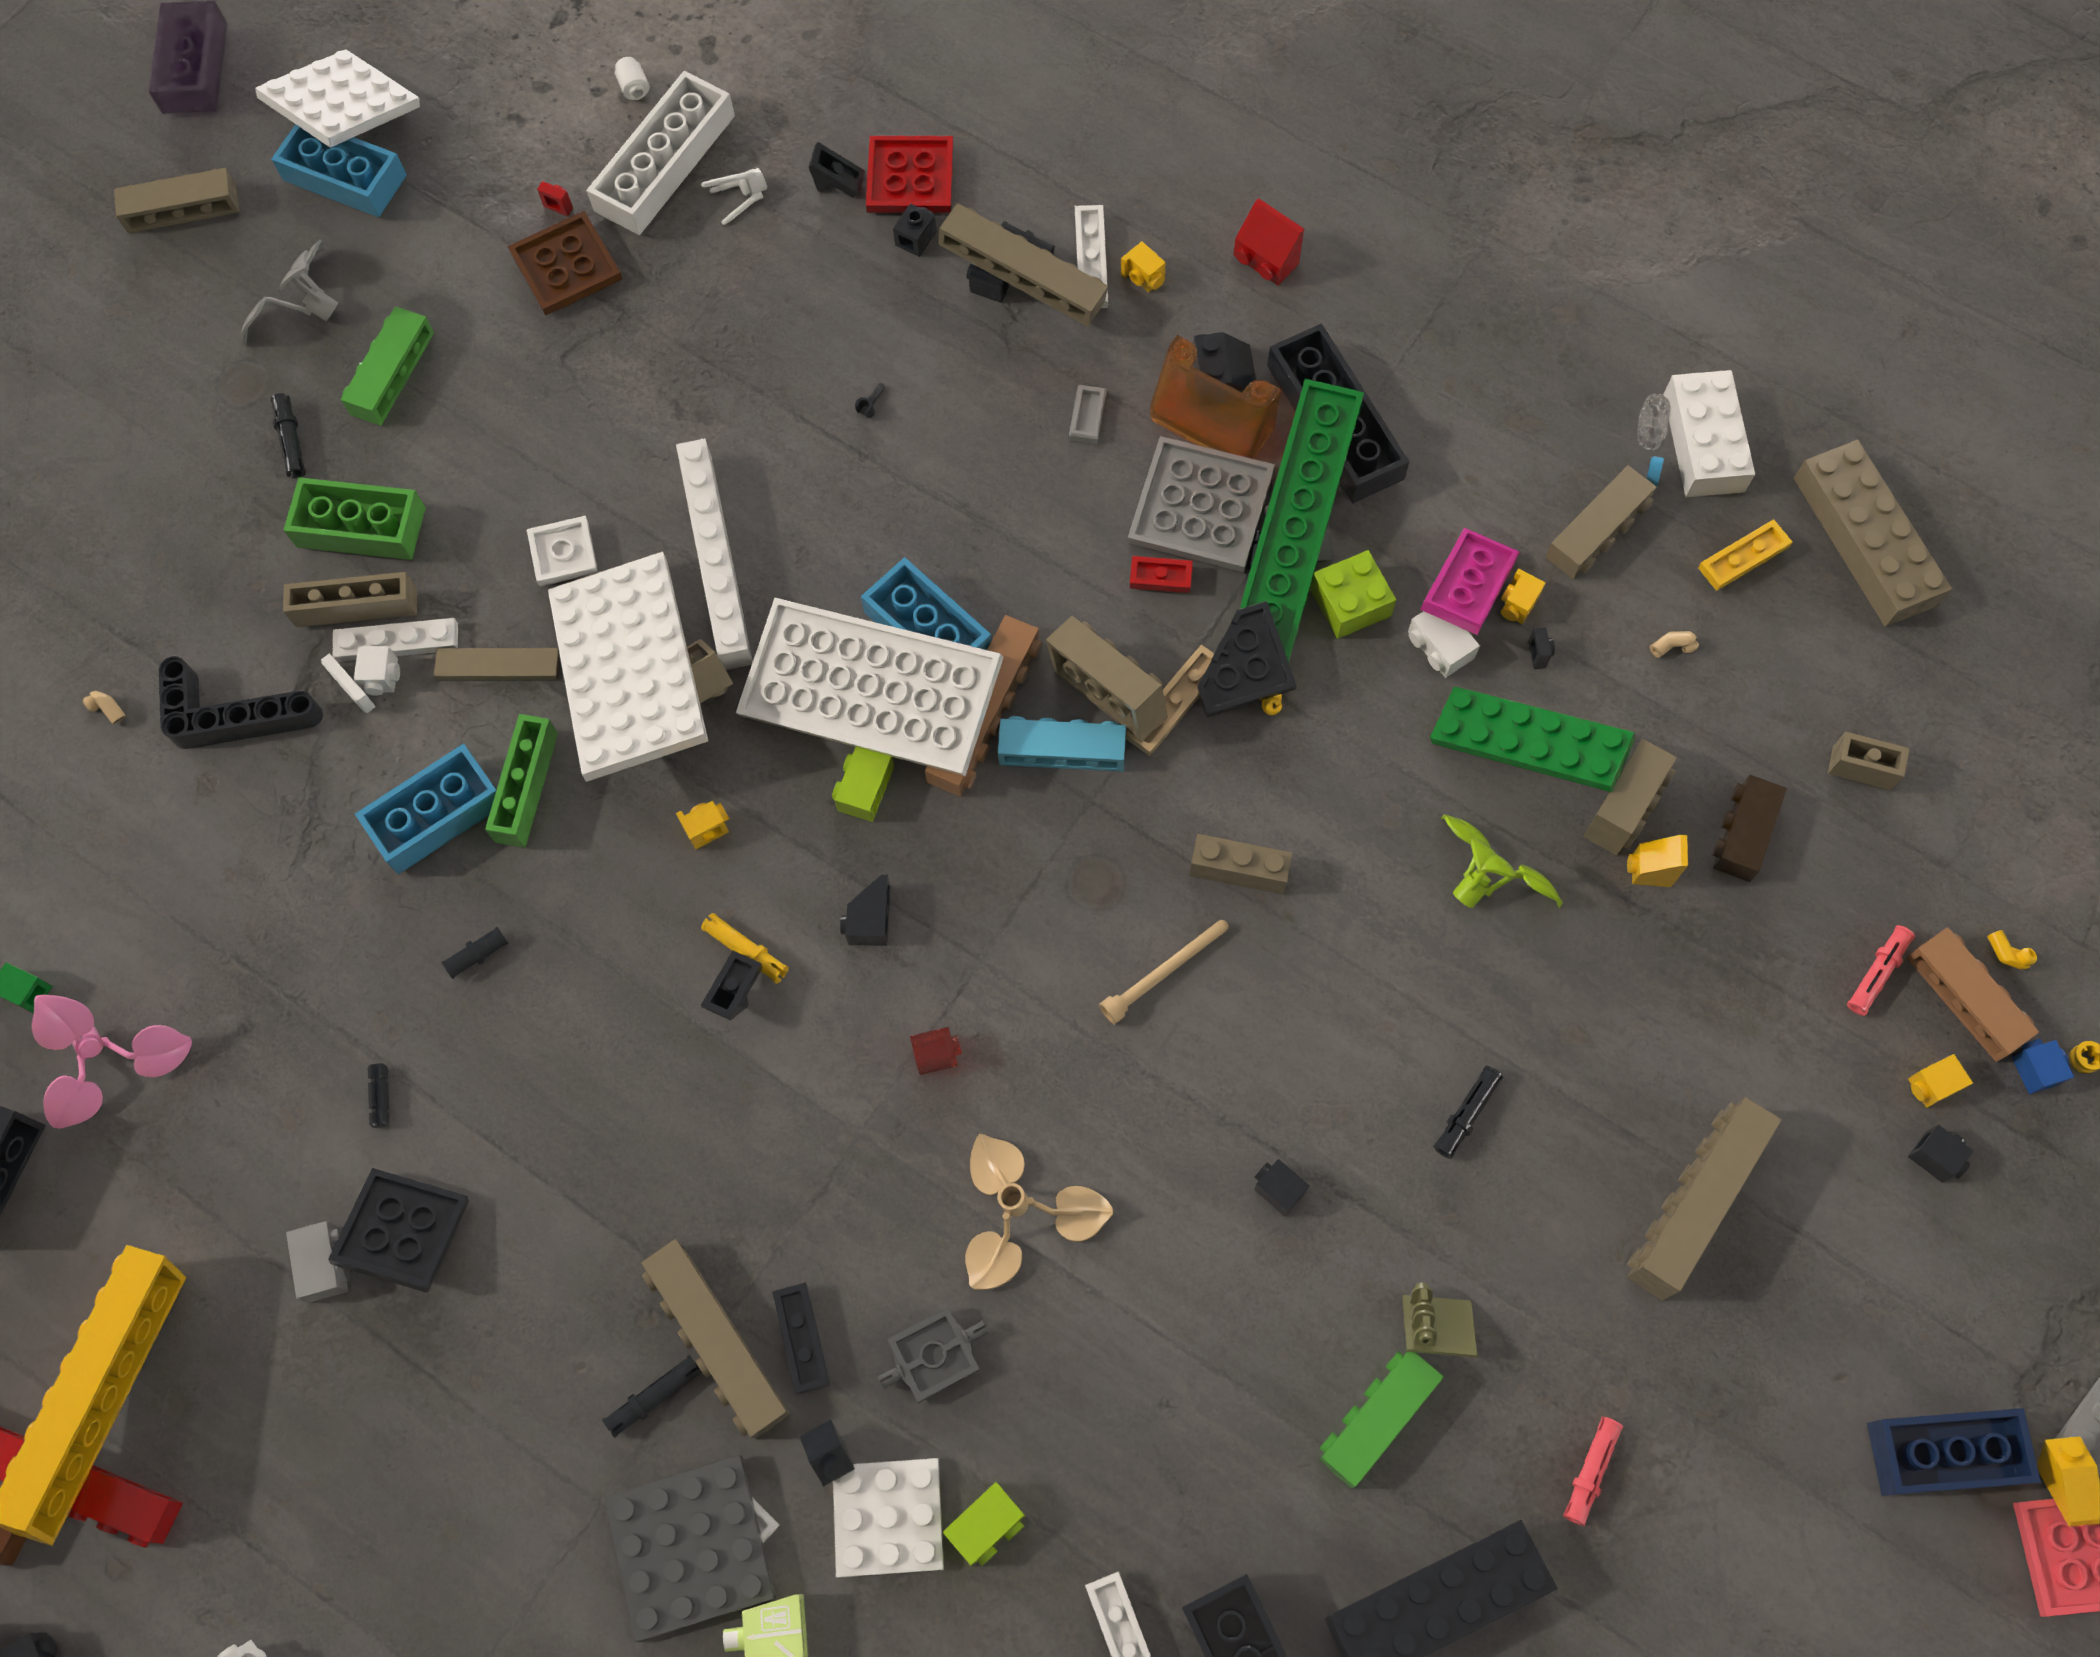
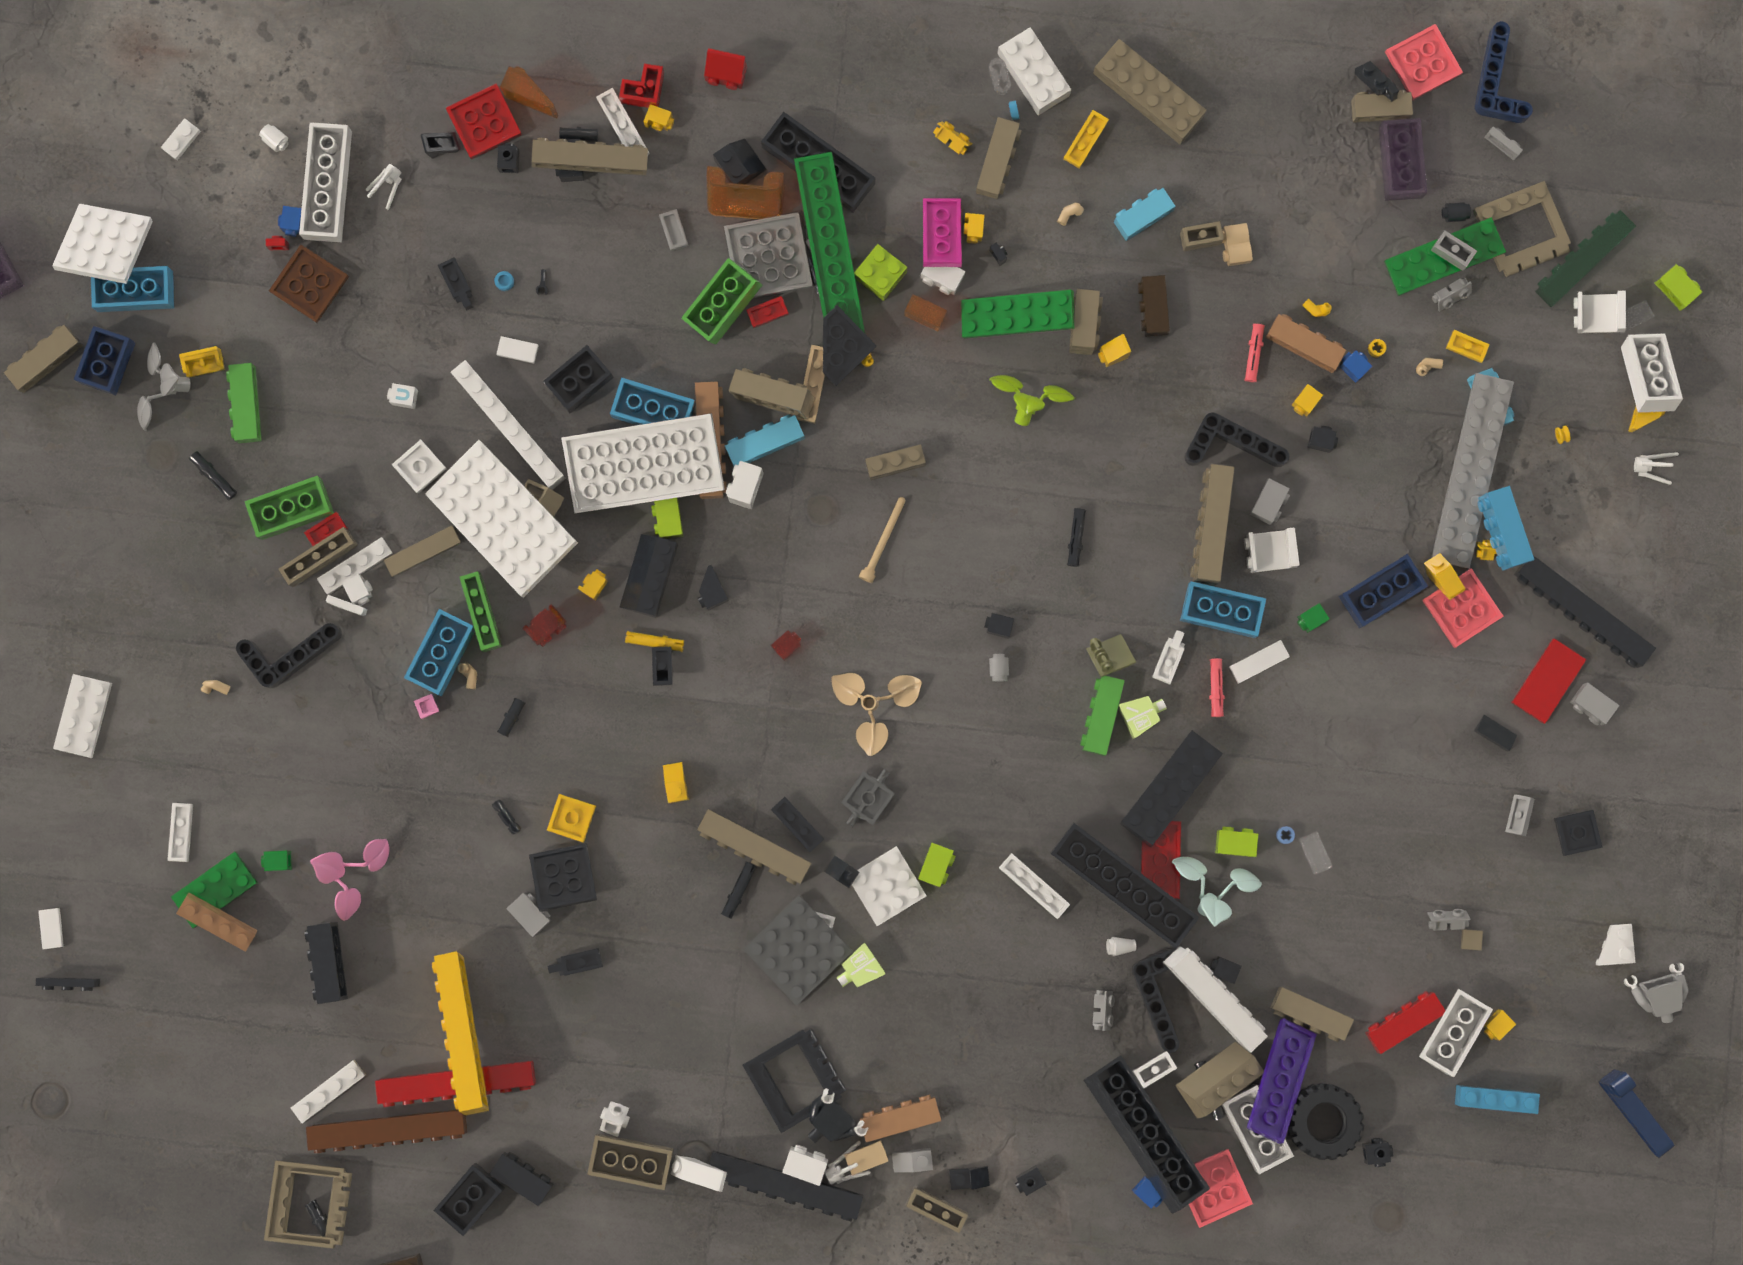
camera: 30 degrees left, 15 degrees up
(246, 233) = (104, 360): none -> dark blue brick
(342, 1378) = (577, 962): none -> black hinge
(367, 876) = (426, 706): none -> bright pink plate
(368, 291) = (202, 361): none -> yellow hinge
(387, 565) = (325, 528): none -> red plate
(456, 860) = (470, 673): none -> tan arm
(469, 1147) = (571, 818): none -> yellow plate
(518, 34) = (180, 139): none -> white plate
(584, 175) = (290, 220): none -> blue brick
(598, 451) = (402, 396): none -> white brick
(599, 844) = (545, 625): none -> clear red brick
(652, 1175) = (675, 783): none -> yellow slope
(756, 346) = (456, 282): none -> black hinge
(787, 466) = (517, 350): none -> white tile
(792, 851) = (648, 575): none -> black slope
(821, 375) = (504, 281): none -> dark azure tile
(845, 536) = (578, 379): none -> black brick
(982, 157) = (523, 90): none -> clear orange slope
(999, 786) = (745, 484): none -> white brick
(1103, 524) = (722, 301): none -> bright green brick
(1151, 224) = (646, 91): none -> red brick
(1247, 1253) = (999, 667): none -> light grey brick
(1392, 678) = (925, 313): none -> clear orange brick
(1445, 1449) = (1141, 714): none -> yellowish green torso
(1534, 1381) = (1169, 658): none -> white hinge
(1553, 477) = (947, 132): none -> yellow hinge
(1661, 1345) = (1223, 609): none -> dark azure brick
(1685, 1464) = (1259, 661): none -> white tile
(1784, 1291) = (1272, 550): none -> white panel
(1790, 692) = (1144, 213): none -> medium azure brick
(1794, 1088) = (1235, 440): none -> black beam
(1808, 1437) = (1312, 618): none -> green brick
(1812, 1210) = (1269, 502): none -> light grey brick
(1918, 800) = (1236, 245): none -> tan brick

